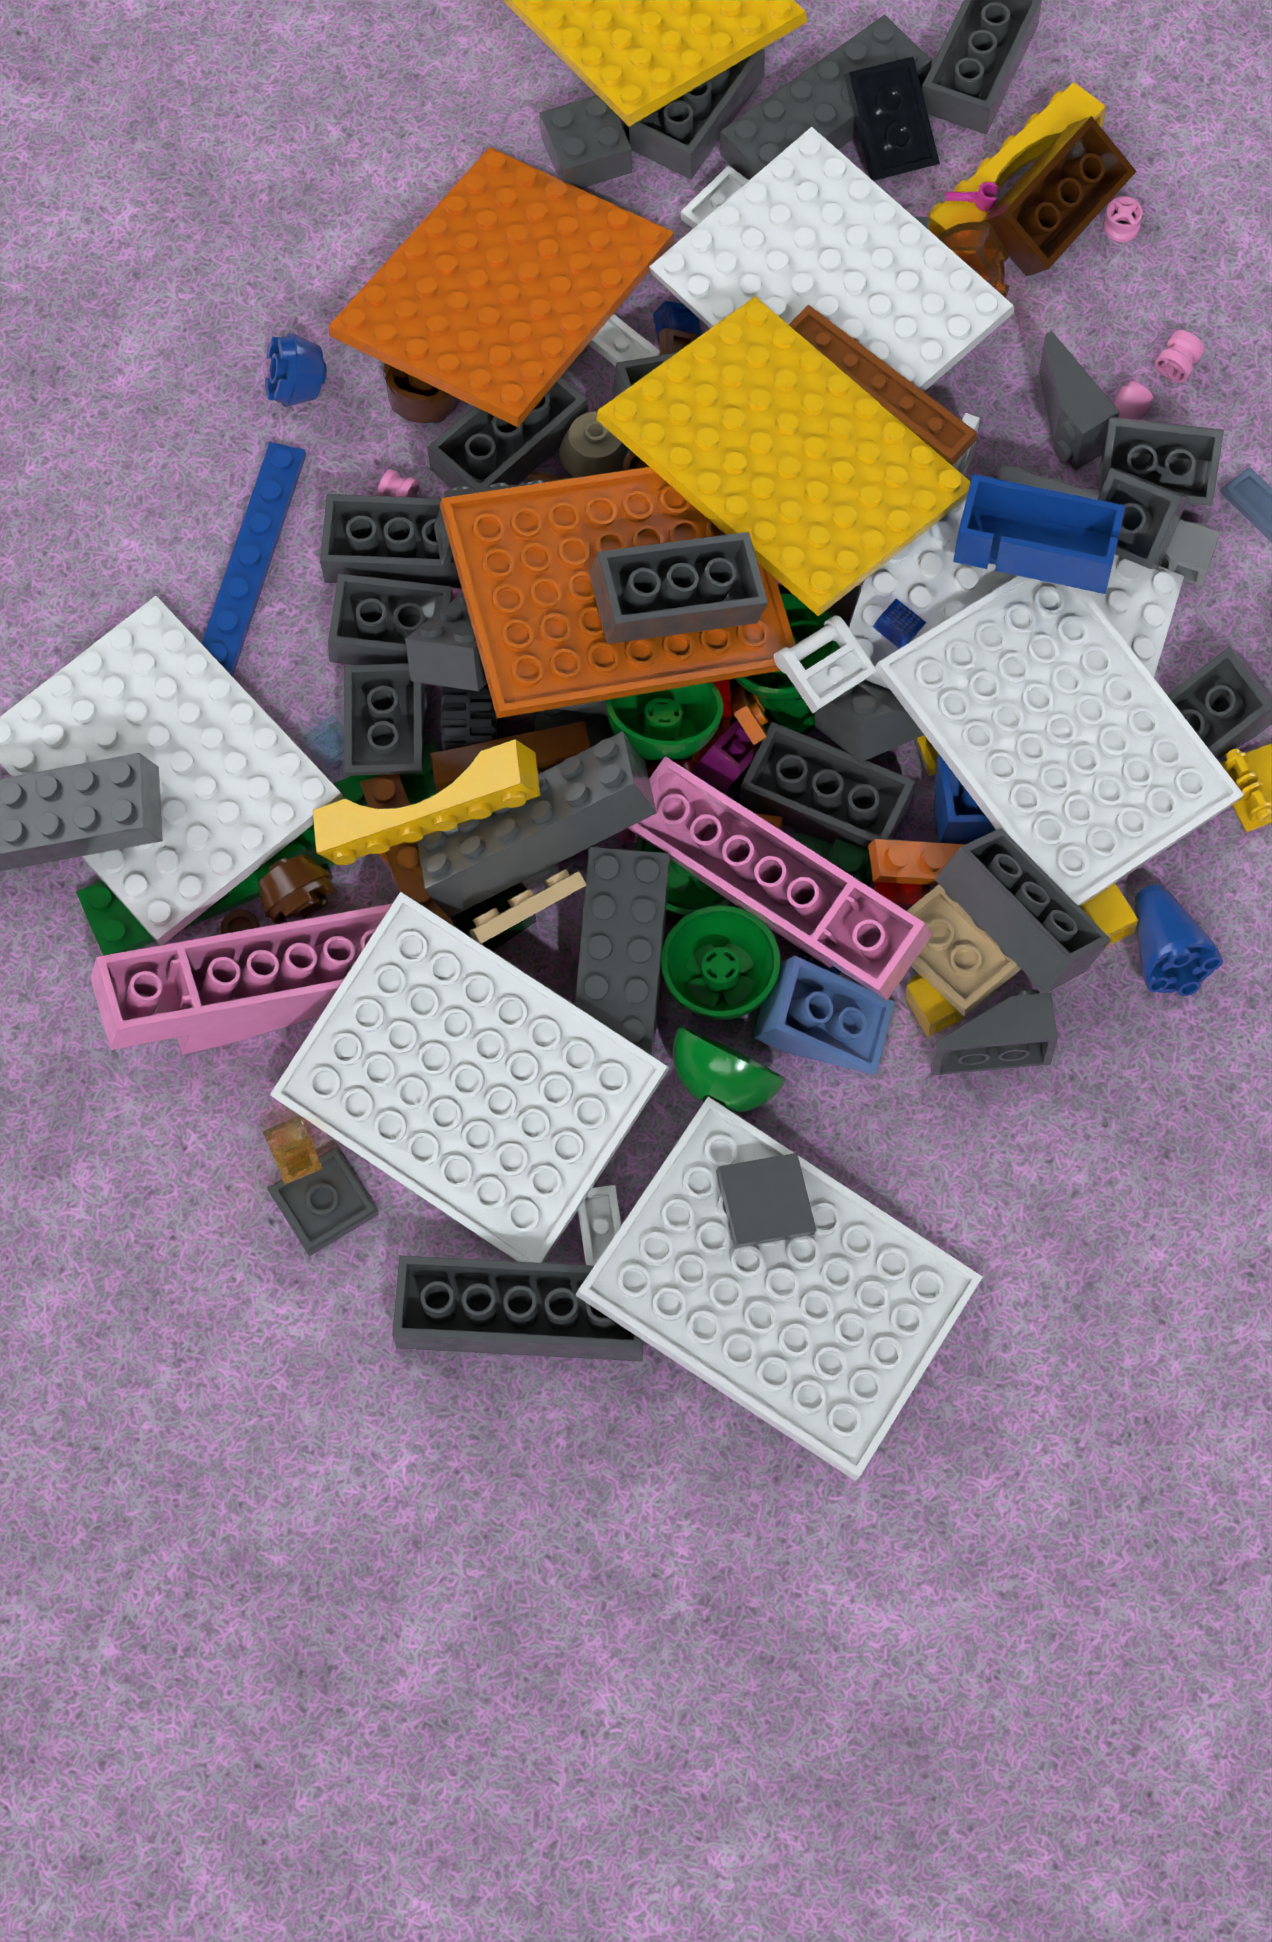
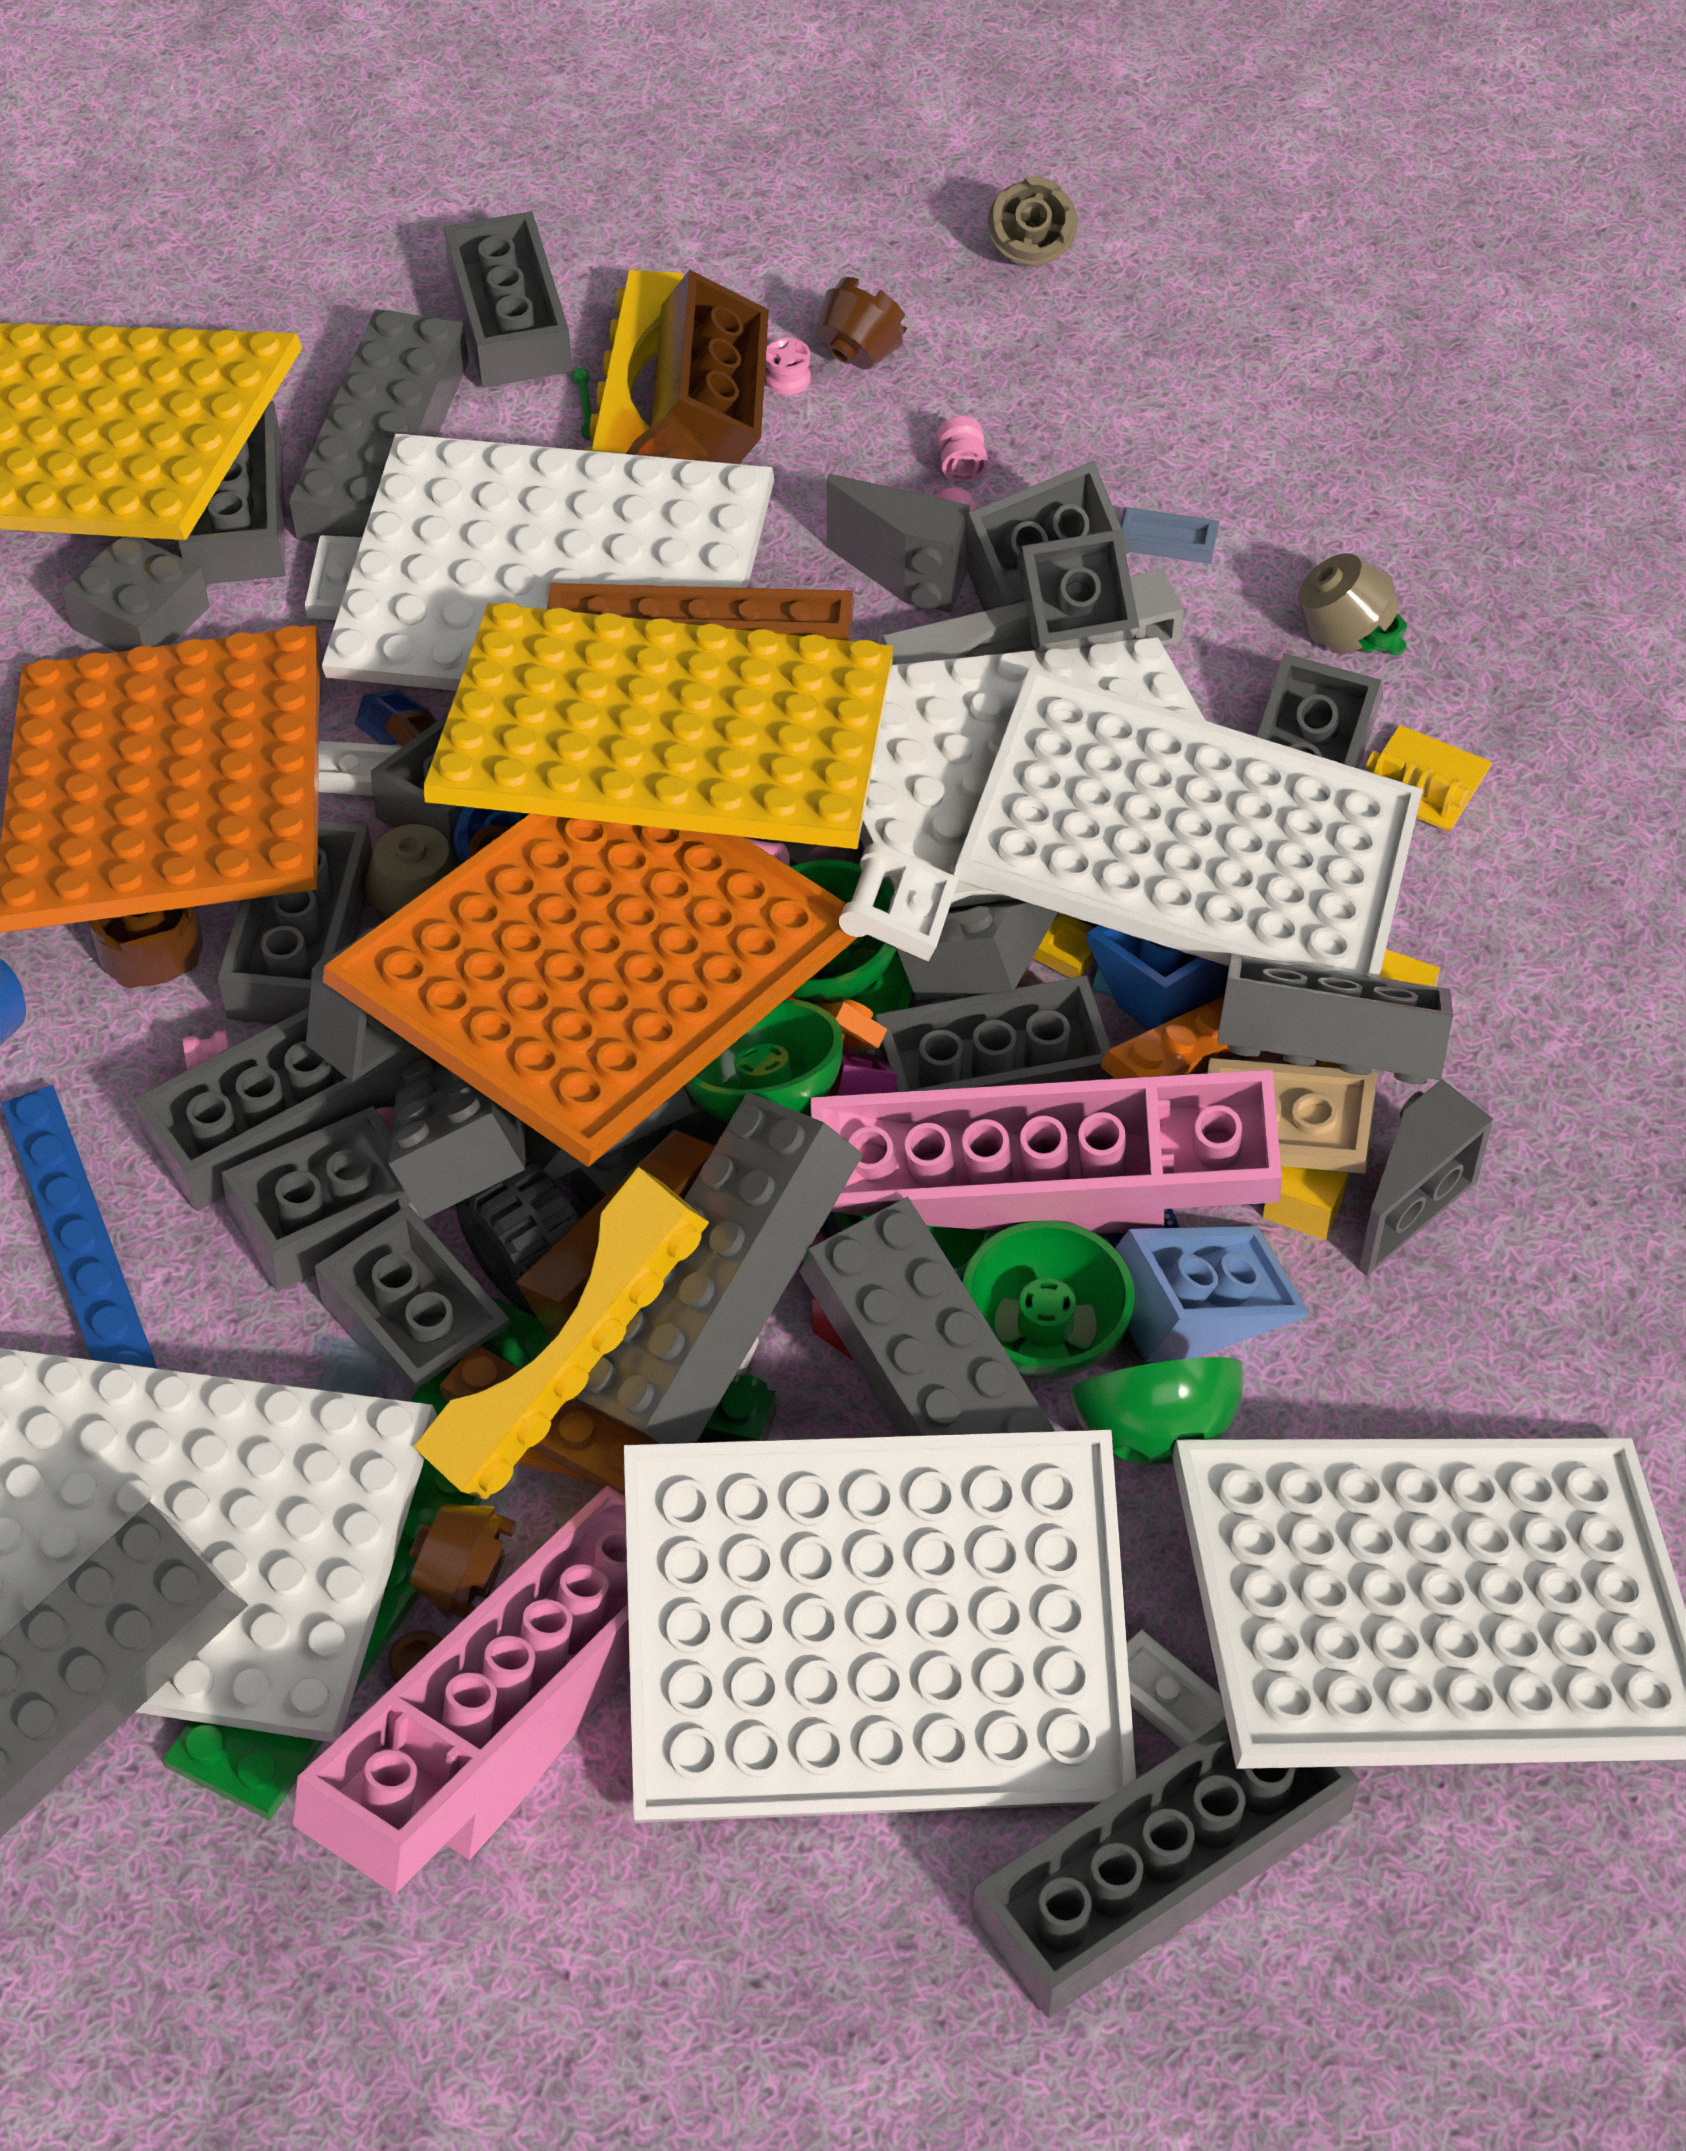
camera: 40 degrees left, 15 degrees down
(292, 1150) = (718, 1866): clear yellow brick -> none
(324, 1203) = (800, 1909): dark grey tile -> none
(526, 905) = (780, 1374): tan plate -> none
(677, 587) = (681, 902): dark grey brick -> none
(766, 1200) = (1347, 1507): dark grey tile -> none
(892, 118) = (465, 390): black tile -> none
(899, 624) = (937, 824): clear blue slope -> none
(979, 198) = (634, 412): dark pink hand -> none
(988, 142) = (581, 377): none -> green hinge
(1039, 533) = (1009, 645): blue piece -> none
(1171, 944) = (1494, 971): blue cone -> none
(1187, 220) = (858, 325): none -> reddish brown cone

